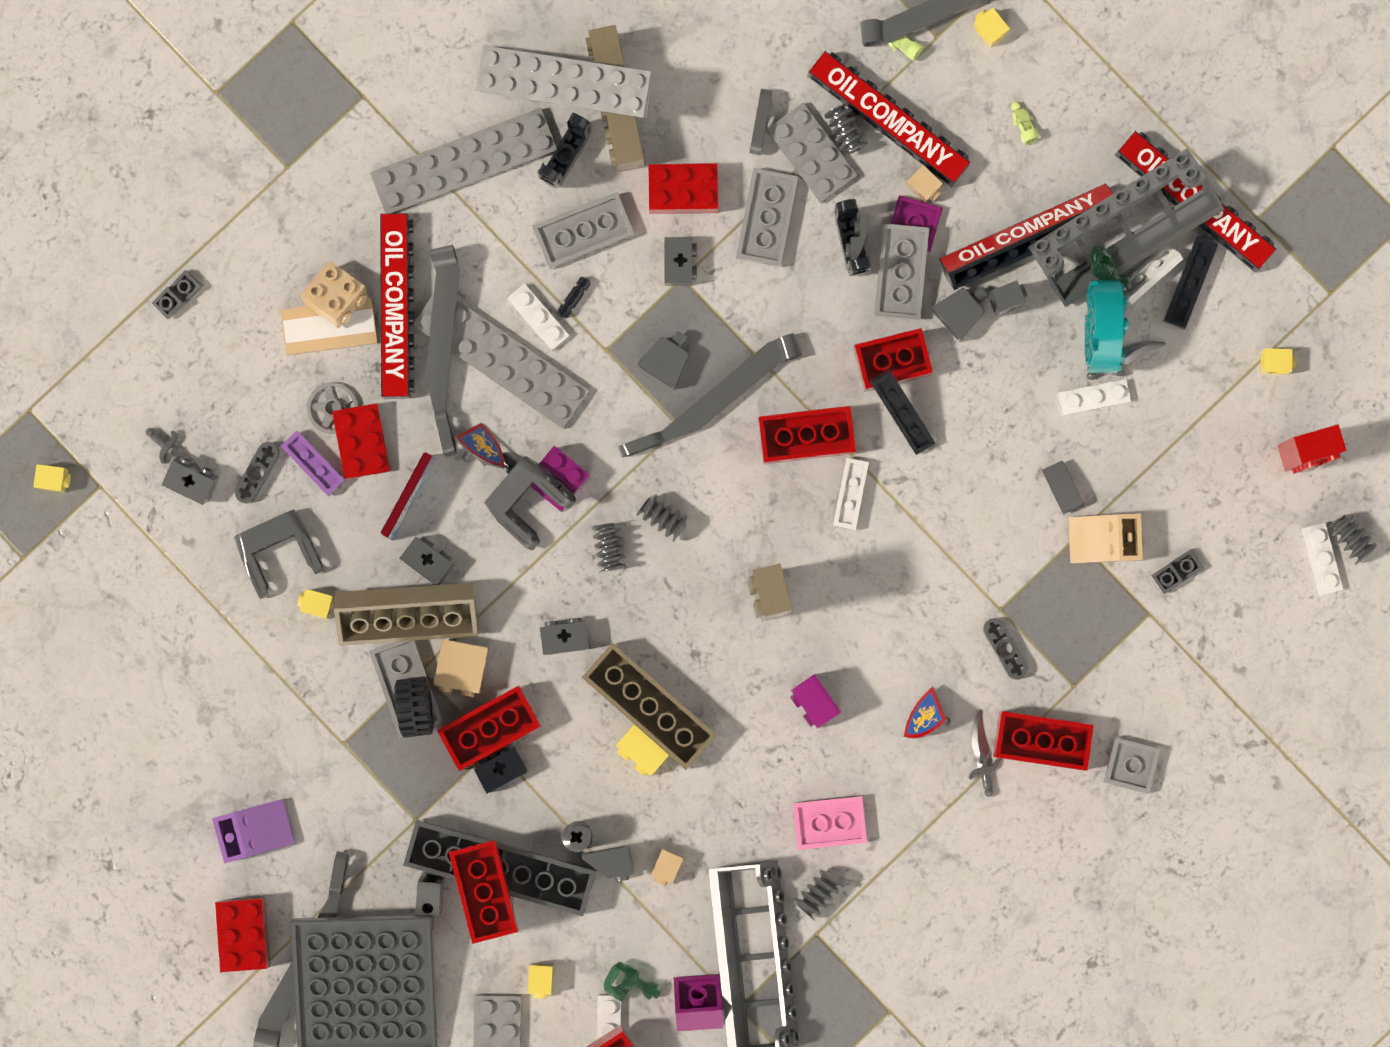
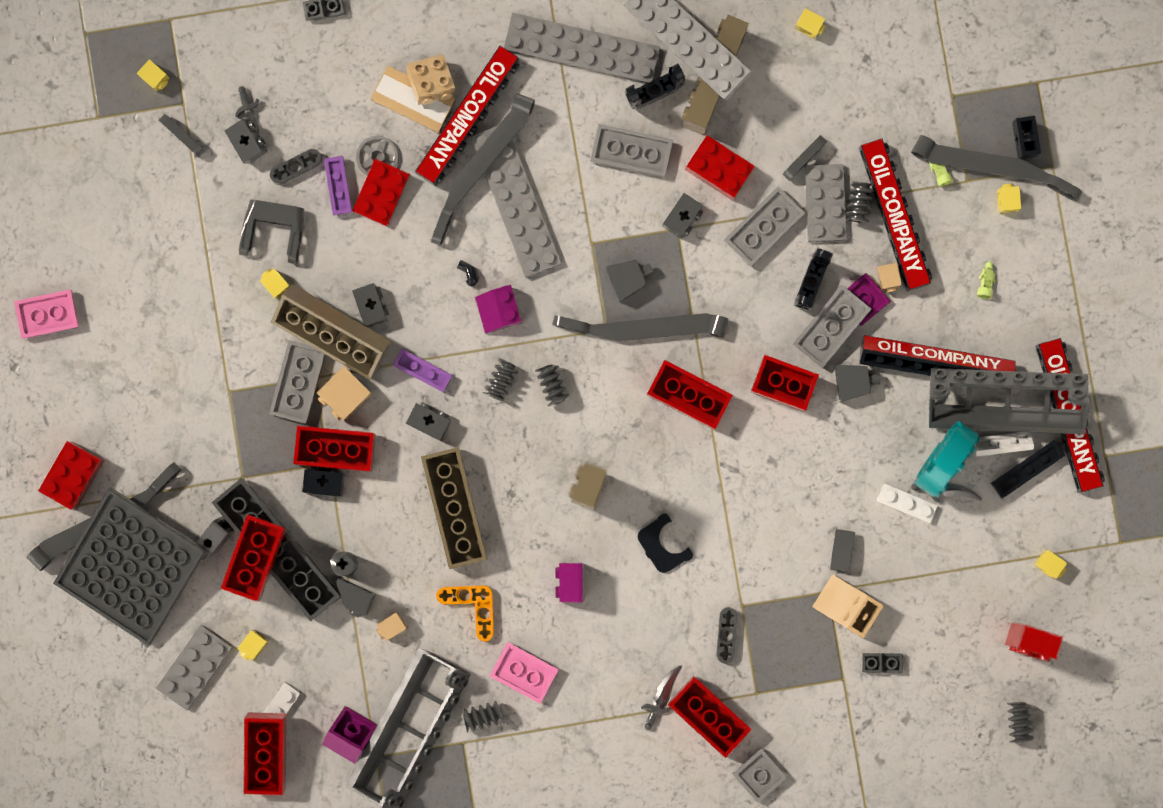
camera: 35 degrees right, 0 degrees up
(106, 790) = (46, 314): none -> bright pink plate
(120, 518) = (181, 135): none -> dark grey beam
(253, 831) = (126, 409): medium lavender slope -> none
(408, 496) = (387, 252): dark red tile -> none
(414, 707) = (292, 399): black tyre -> none
(482, 445) = (461, 251): shield -> none
(514, 487) = (462, 295): dark grey connector -> none
(523, 590) = (422, 370): none -> medium lavender plate
(538, 317) = (560, 189): white plate -> none
(573, 297) = (594, 192): black axle -> none
(630, 978) = (314, 686): clear green piece -> none
(642, 751) = (428, 535): light yellow brick -> none
(739, 785) = (479, 604): none -> light orange beam
(850, 494) = (692, 456): white plate -> none
(856, 244) = (811, 287): dark grey slope -> none
(865, 607) = (662, 559): none -> black piece
(902, 411) = (766, 423): black plate -> none
(926, 716) = (640, 645): shield -> none
(1007, 298) = (892, 394): dark grey brick -> none
(1106, 268) = (975, 419): clear green piece -> none
(1322, 559) = (989, 722): white plate -> none

